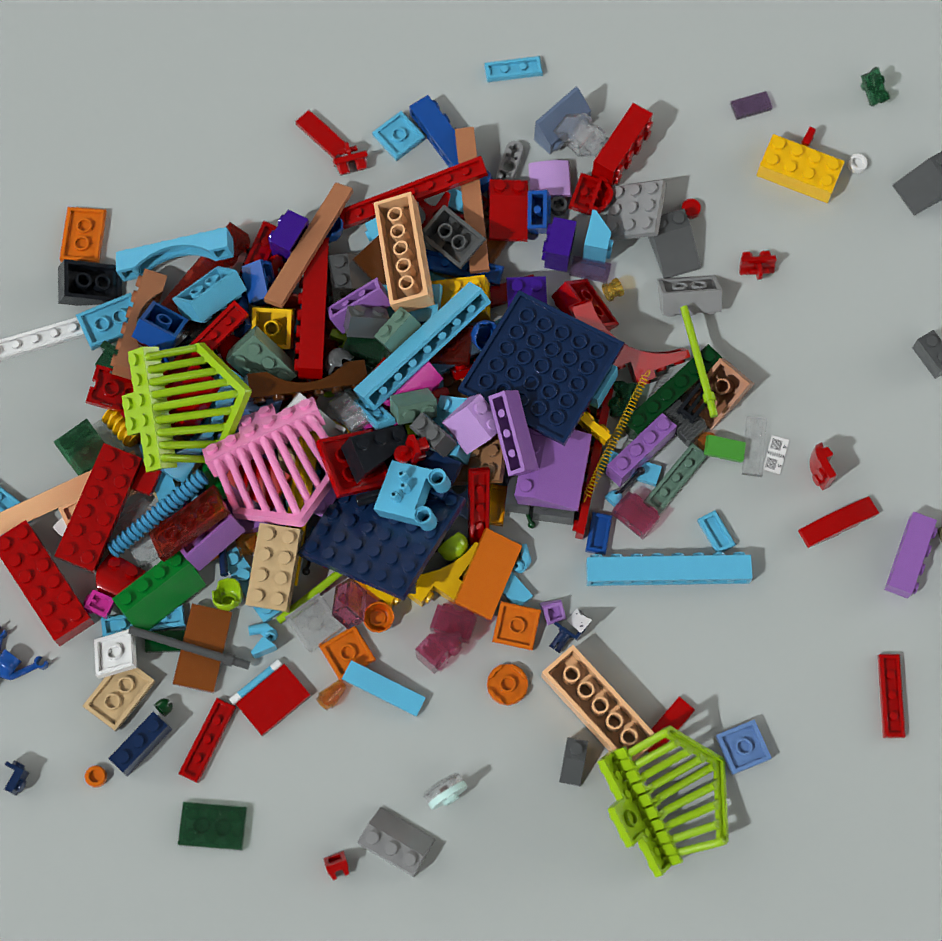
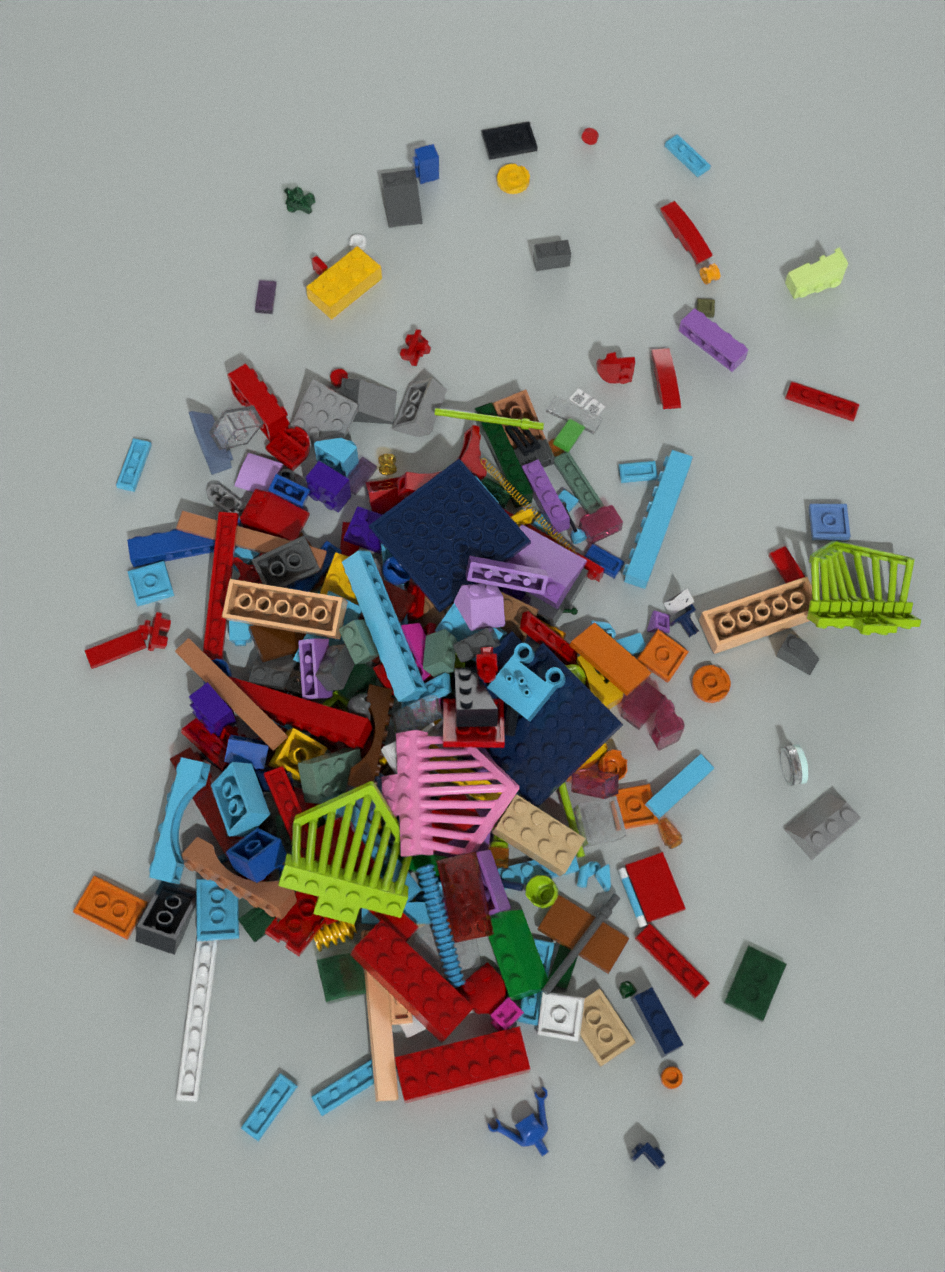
camera: 70 degrees left, 5 degrees down
(335, 863) = (825, 883): red tile -> none

